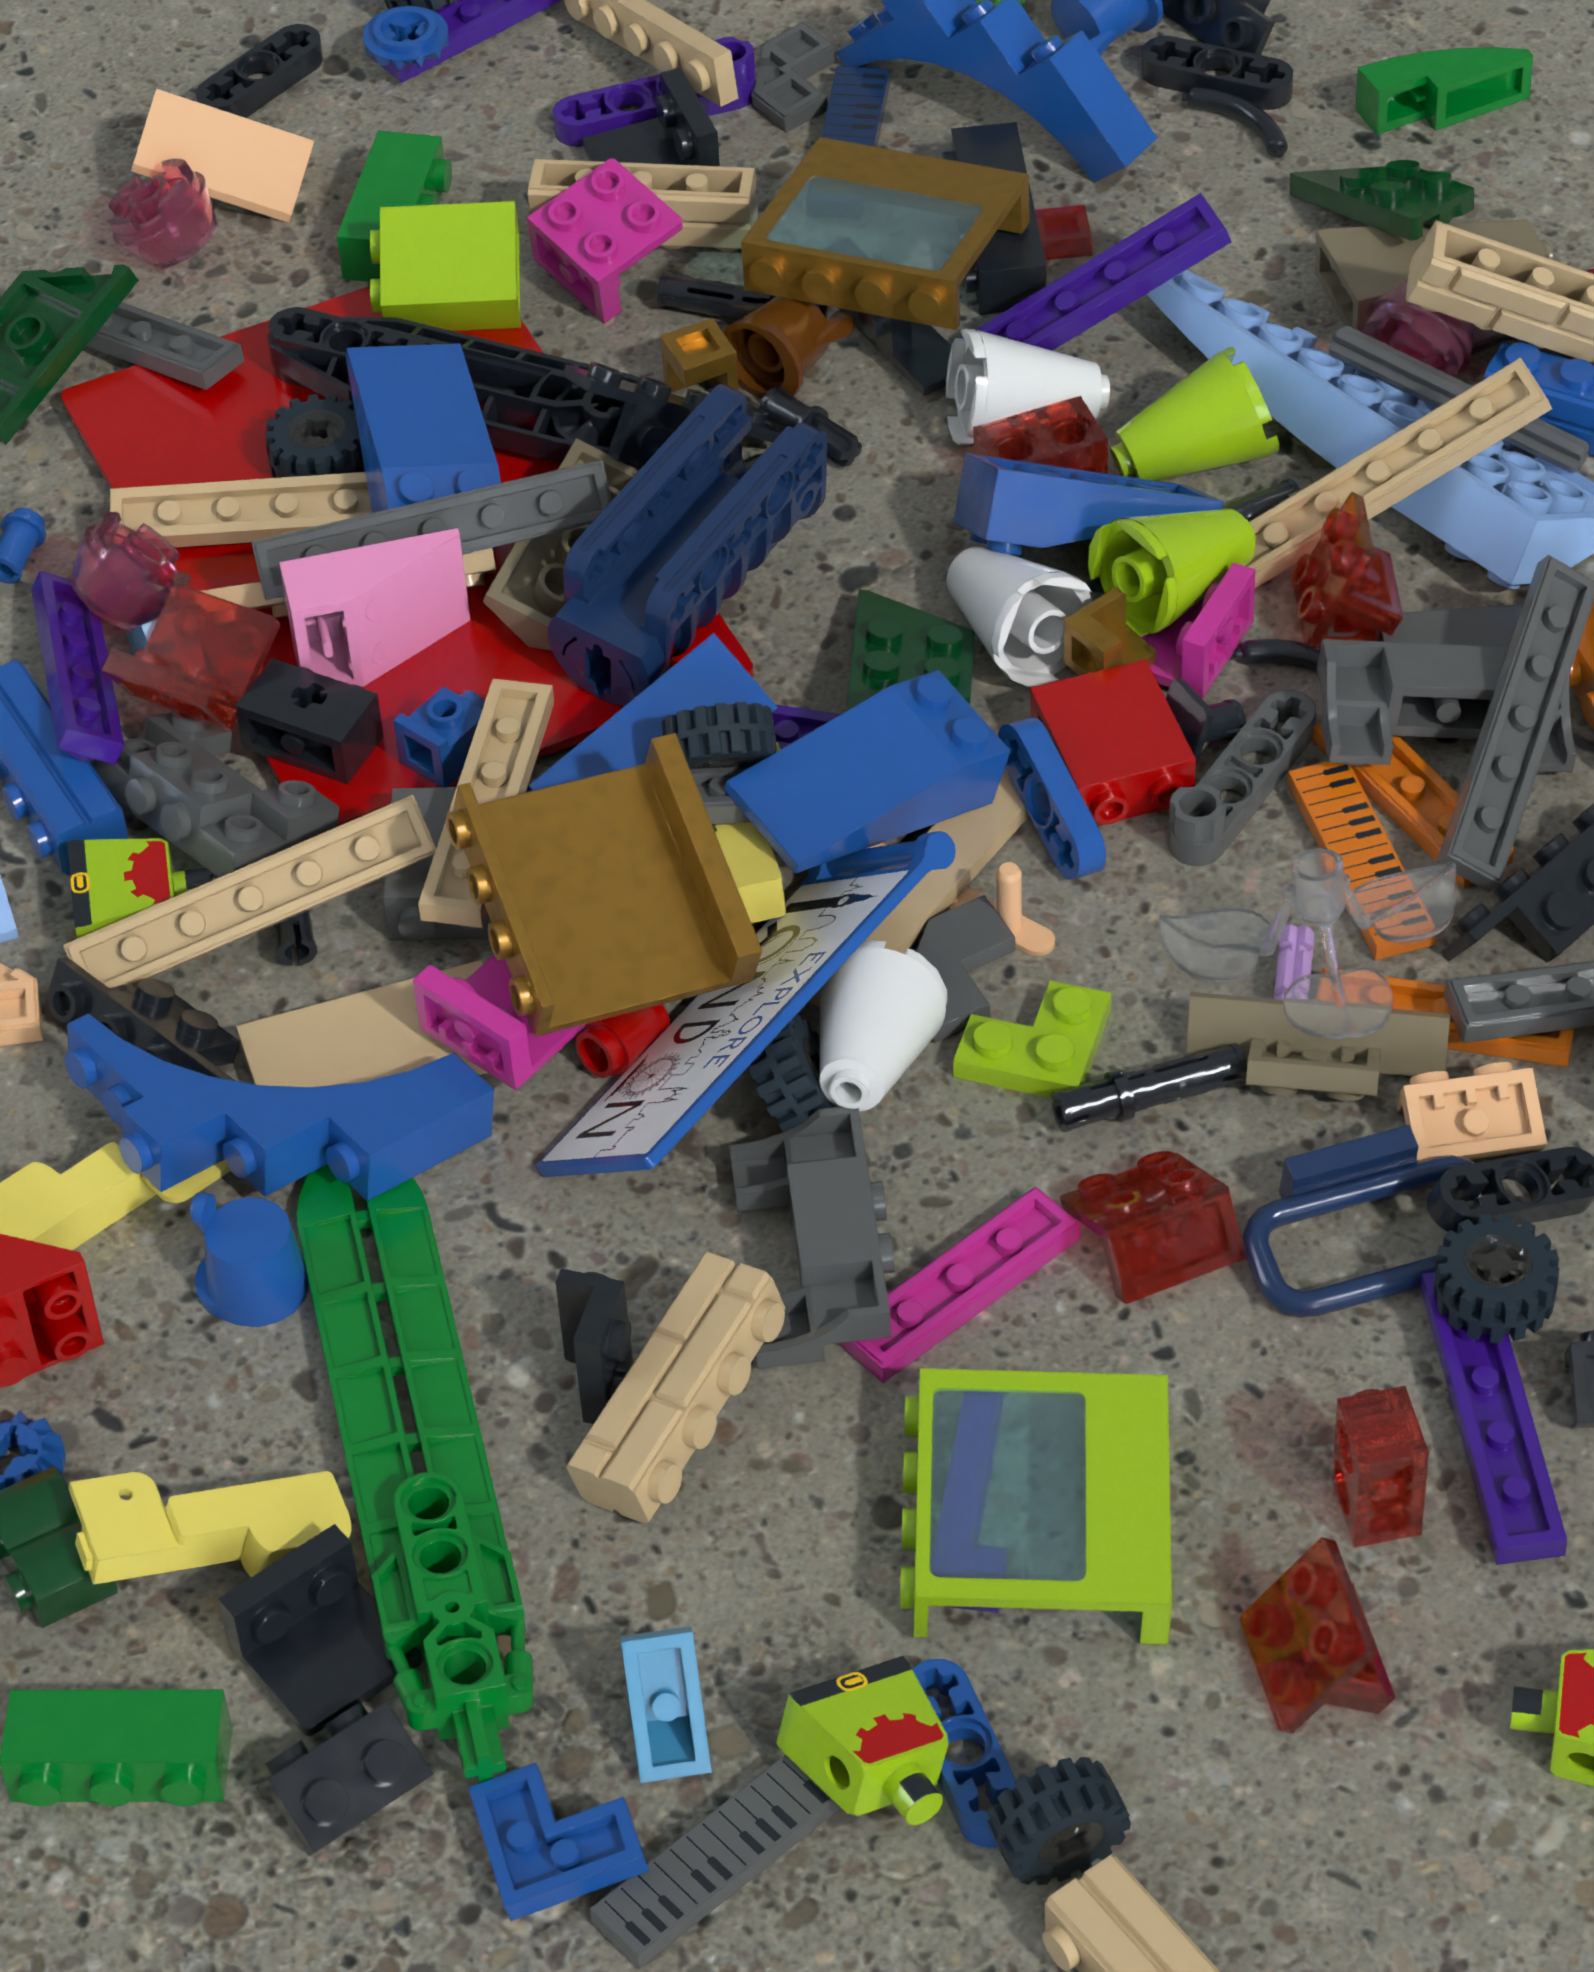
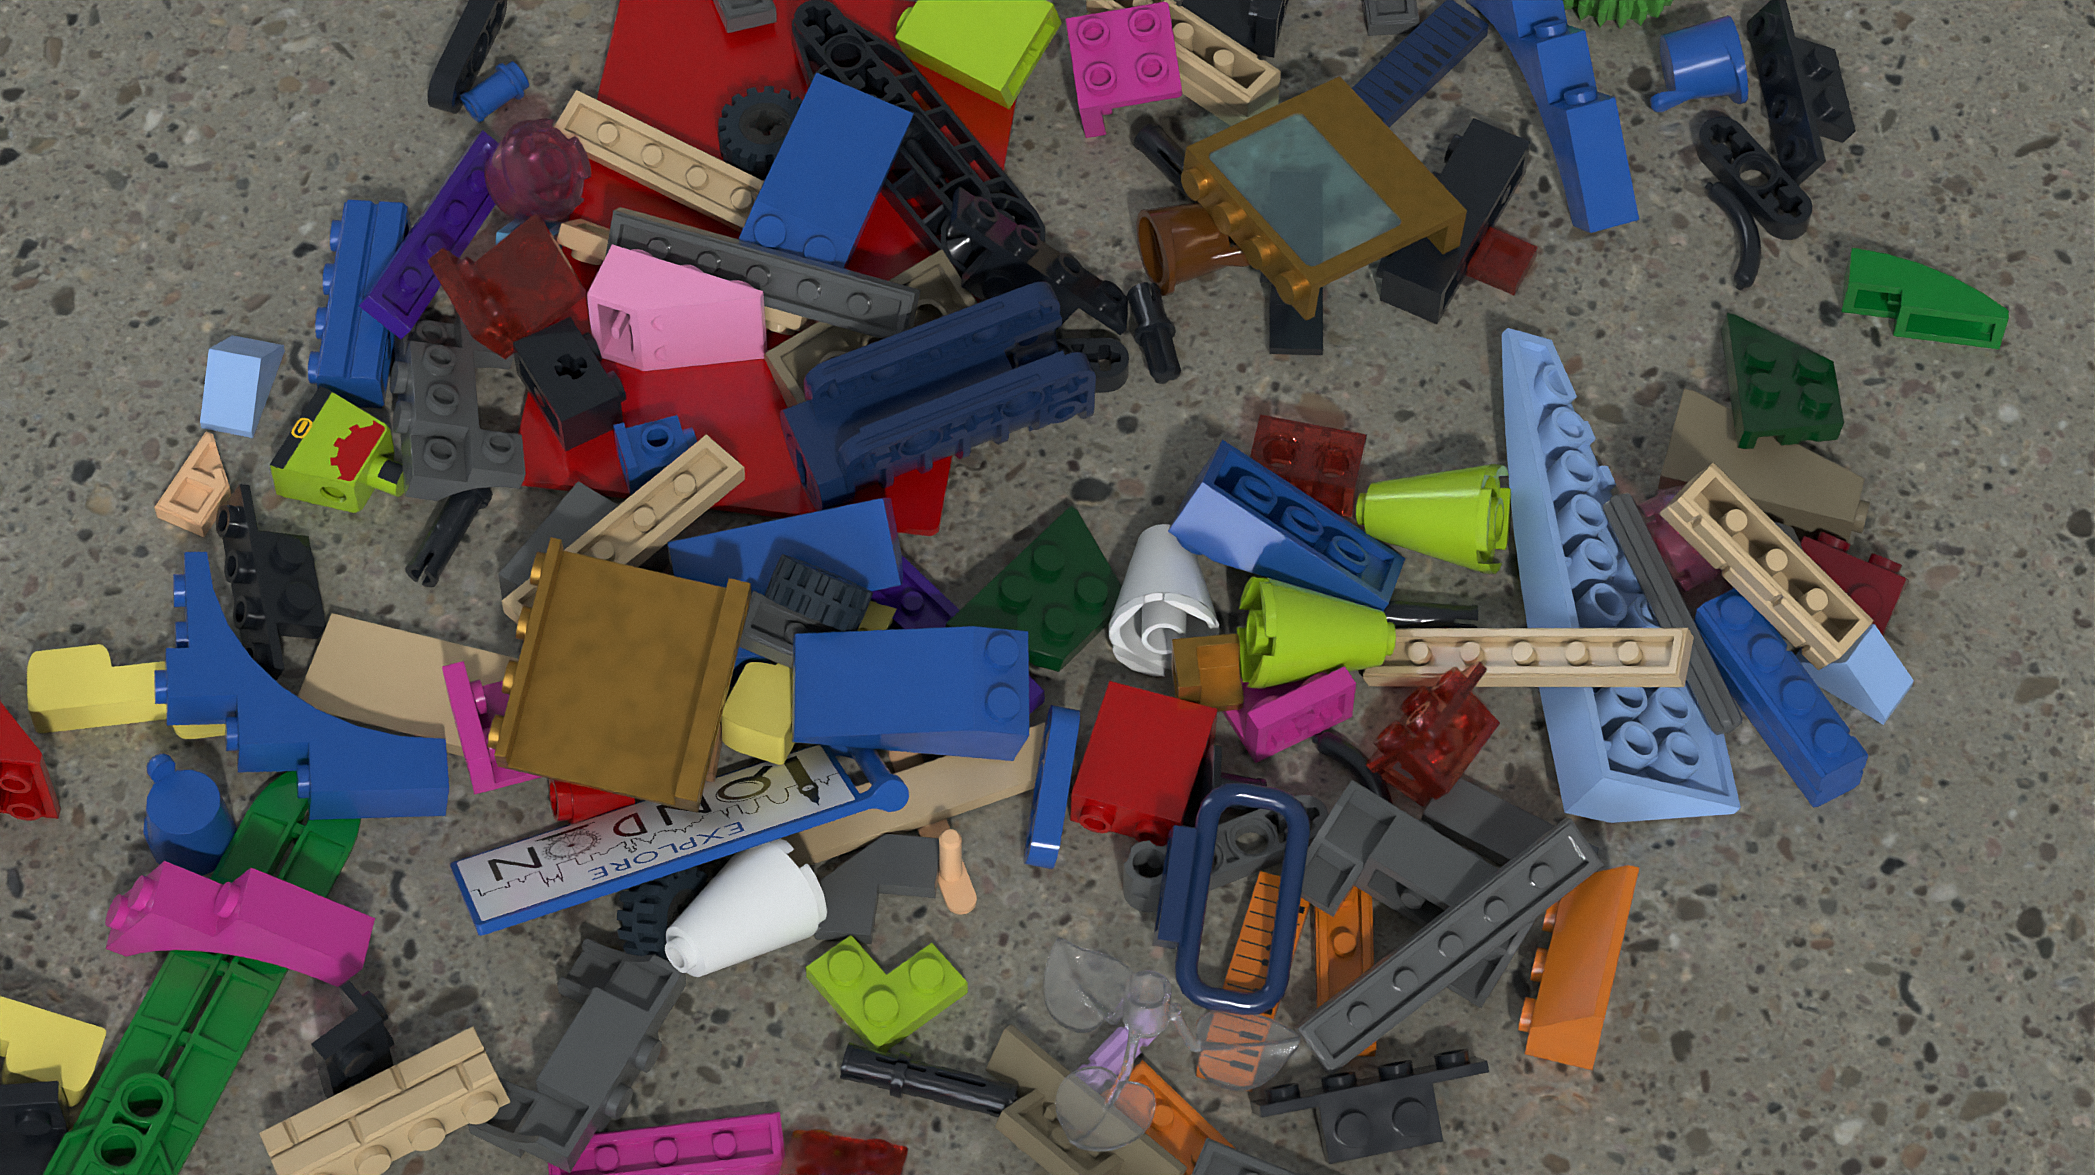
camera: 30 degrees right, 10 degrees up
(256, 896) = (404, 517): tan tile -> none
(402, 1291) = (244, 918): none -> dark pink arch
(698, 355) = (1110, 221): pearl gold panel -> none
(1006, 377) = (1333, 391): white cone -> none
(1114, 277) = (1454, 343): dark purple plate -> none
(1253, 798) = (1186, 891): none -> dark blue bar

